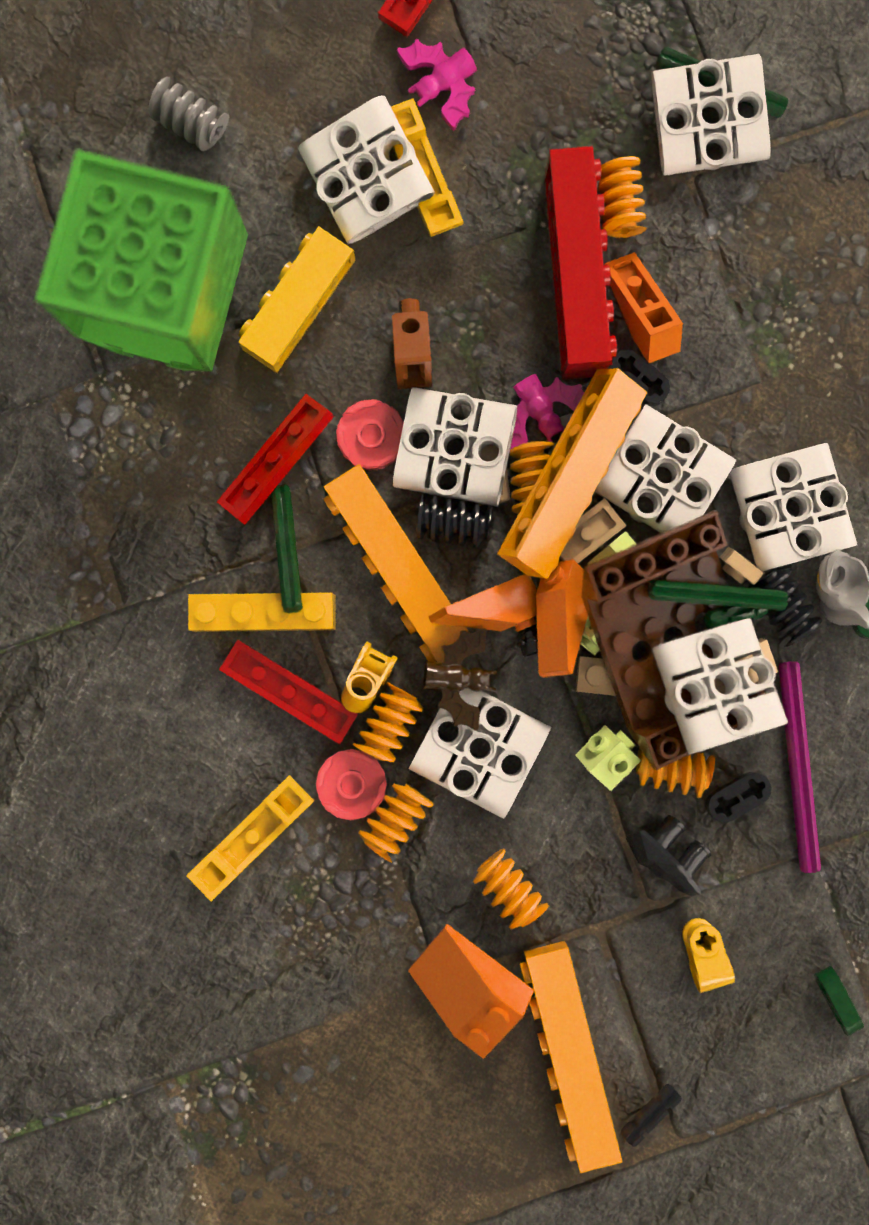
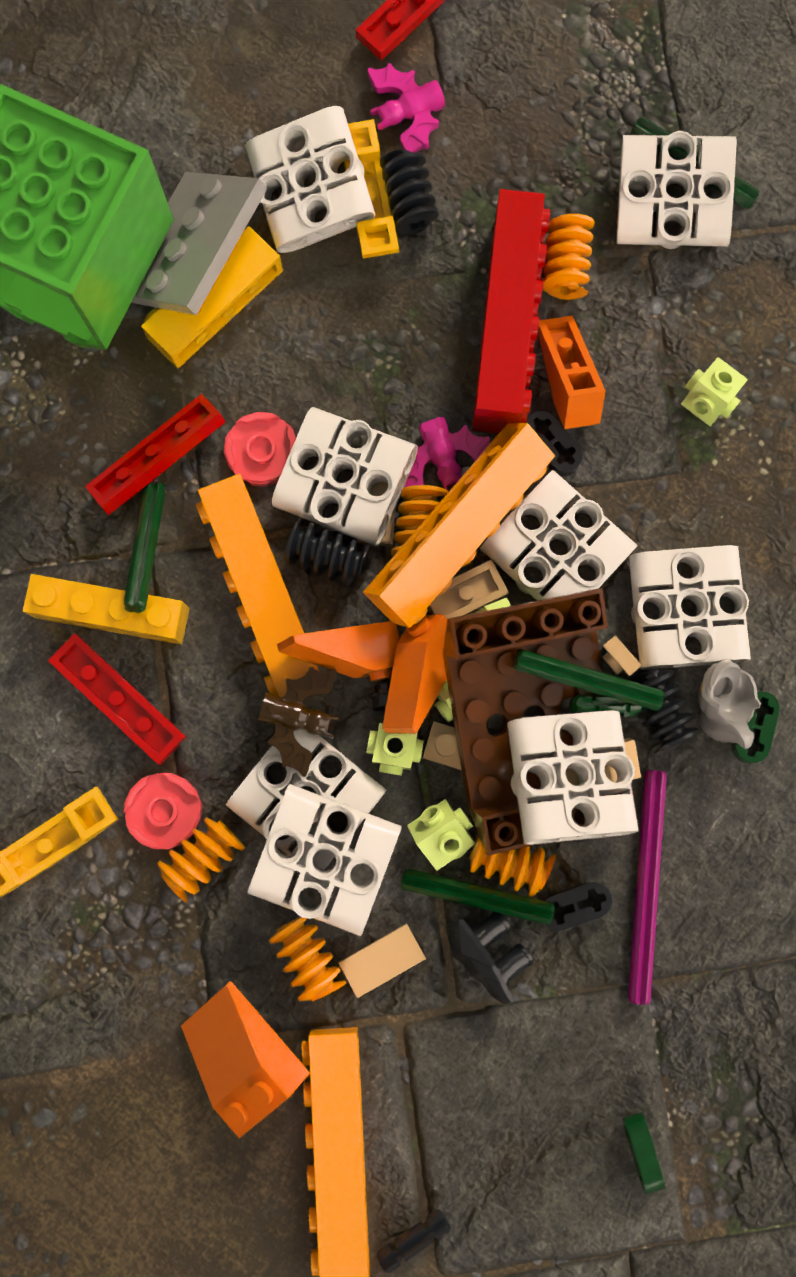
camera: 10 degrees right, 5 degrees down
(184, 117) = (139, 93): light grey piece -> none
(281, 237) = (207, 224): none -> light grey plate
(369, 674) = (206, 695): yellow piece -> none
(389, 724) = (215, 753): light orange piece -> none
(412, 346) = (320, 365): dark orange torso -> none
(459, 162) = (408, 191): none -> black piece
(536, 689) = (394, 762): none -> yellowish green brick
(551, 782) = (353, 899): none -> white connector
(575, 878) = (382, 960): none -> tan tile
(650, 805) = (478, 896): none -> dark green axle
(708, 960) = (508, 1079): yellow piece -> none
(780, 302) = (713, 391): none -> yellowish green brick

